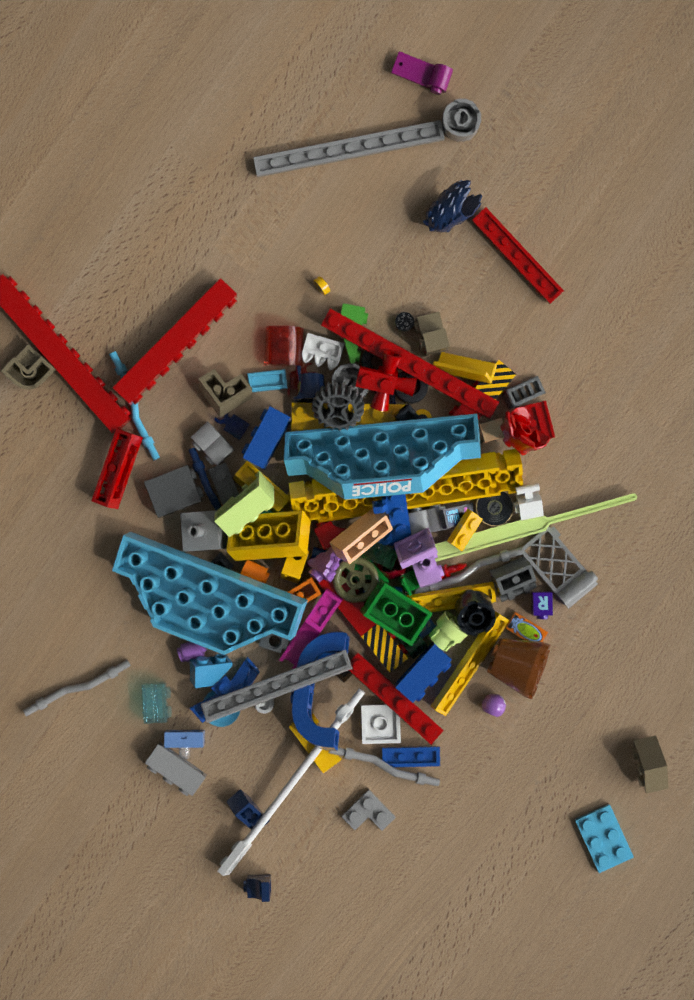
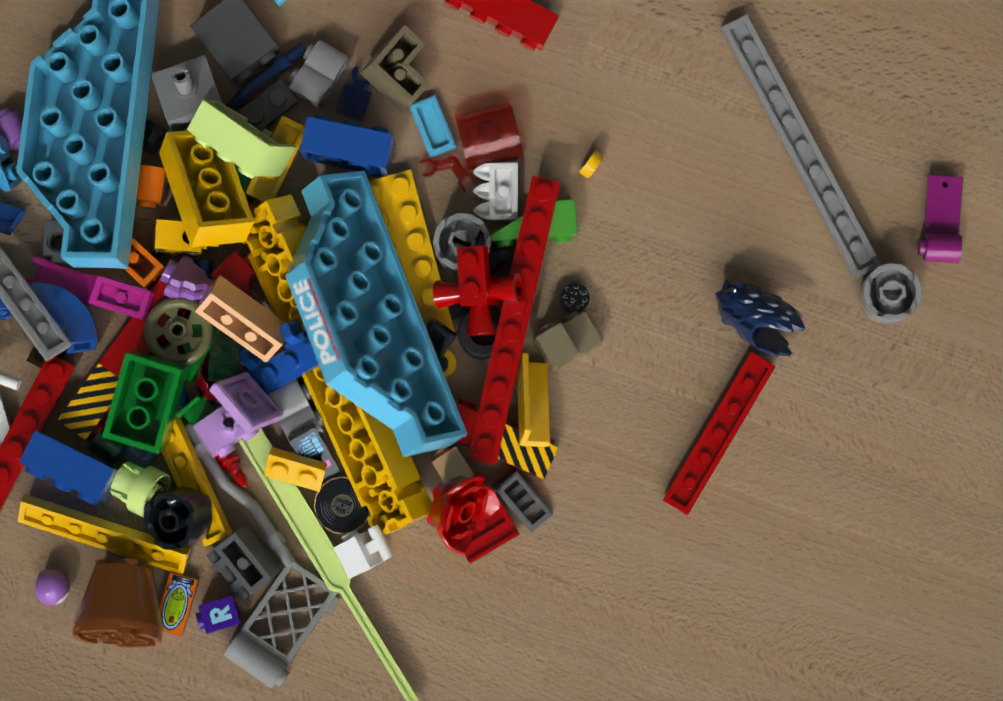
camera: 75 degrees right, 5 degrees down
(308, 385) = (439, 188): dark blue hat -> none
(338, 399) = (429, 228): dark grey gear -> none

